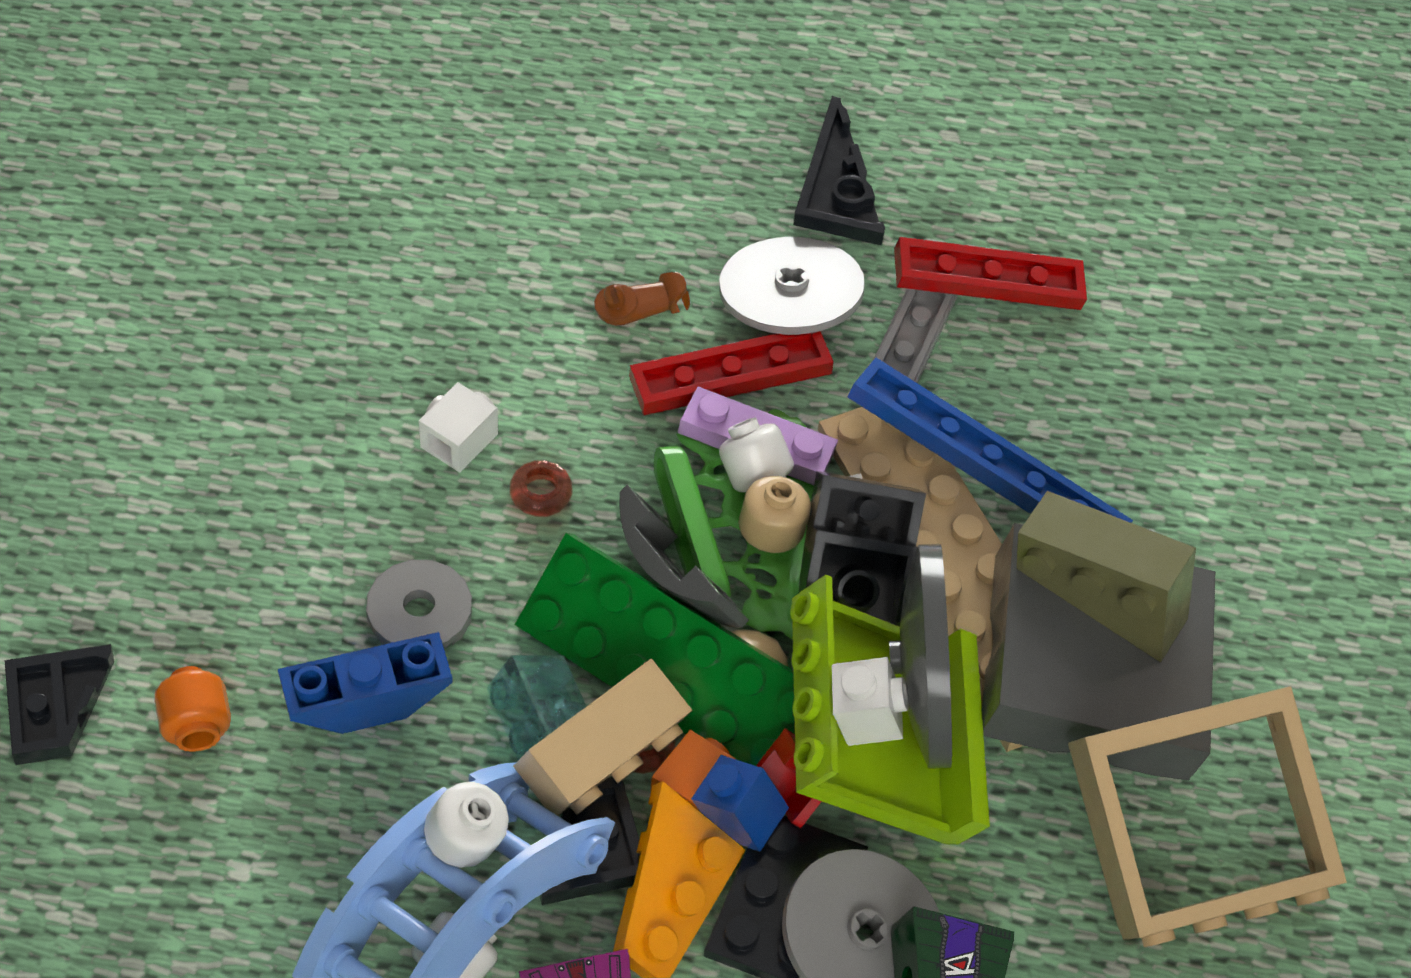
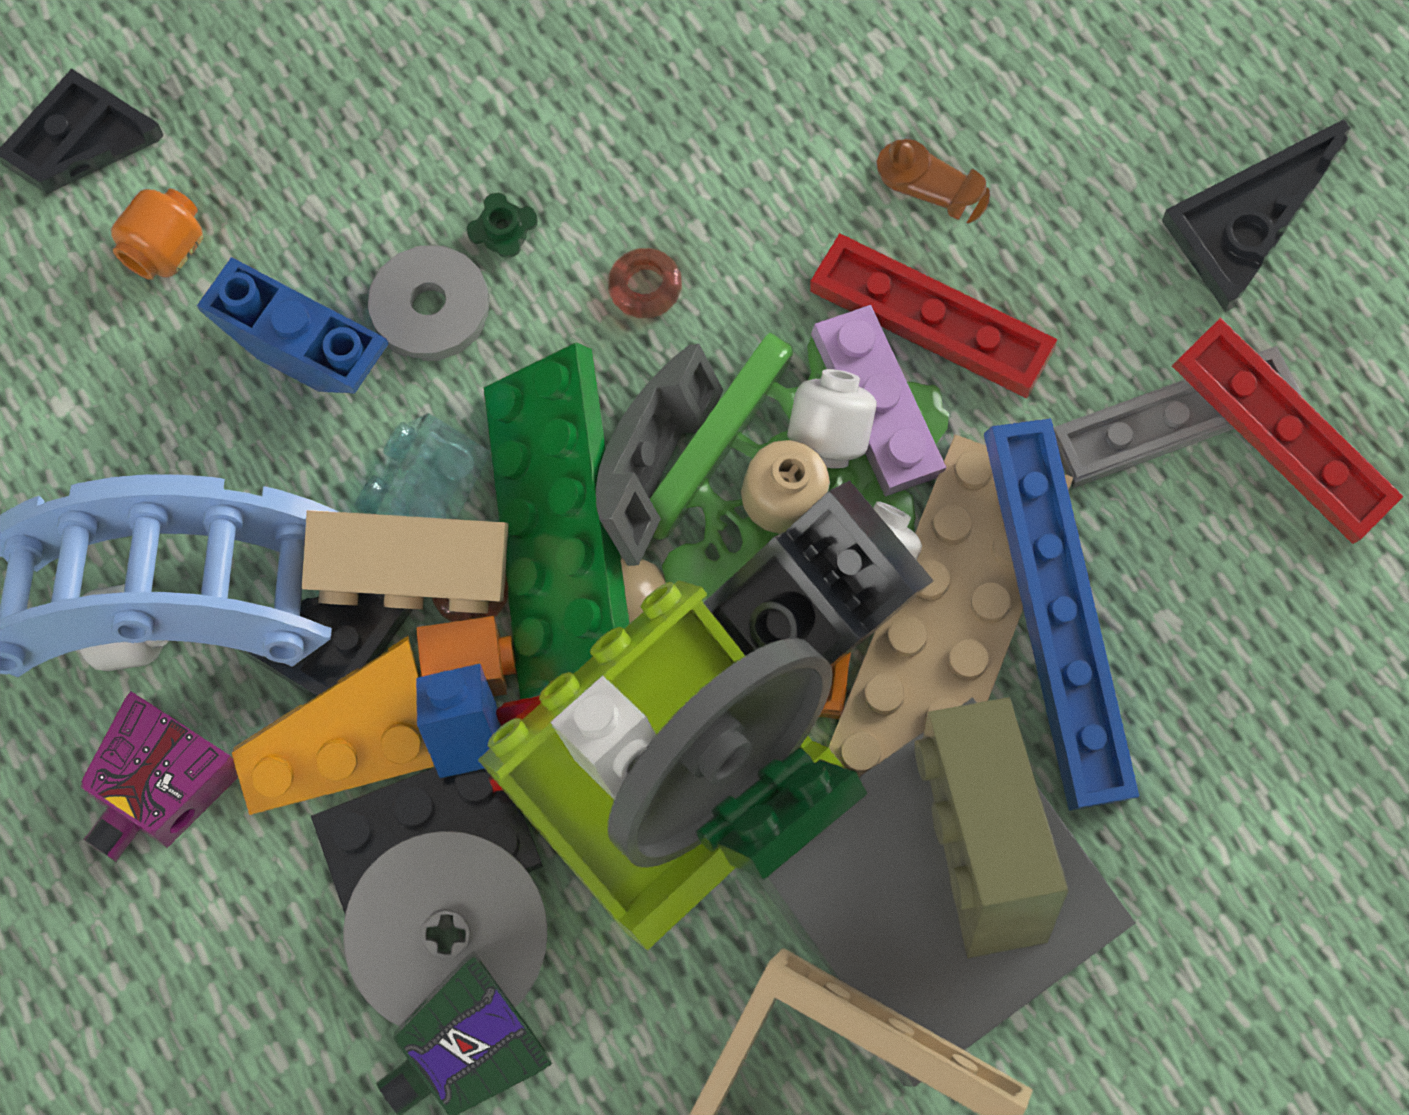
camera: 55 degrees right, 15 degrees up
(414, 537) = (504, 241): none -> dark green plate
(458, 426) = (632, 164): white brick -> none
(466, 824) = (186, 551): white head -> none
(791, 285) = (1042, 290): piece -> none
(1002, 667) = (780, 812): none -> dark green plate

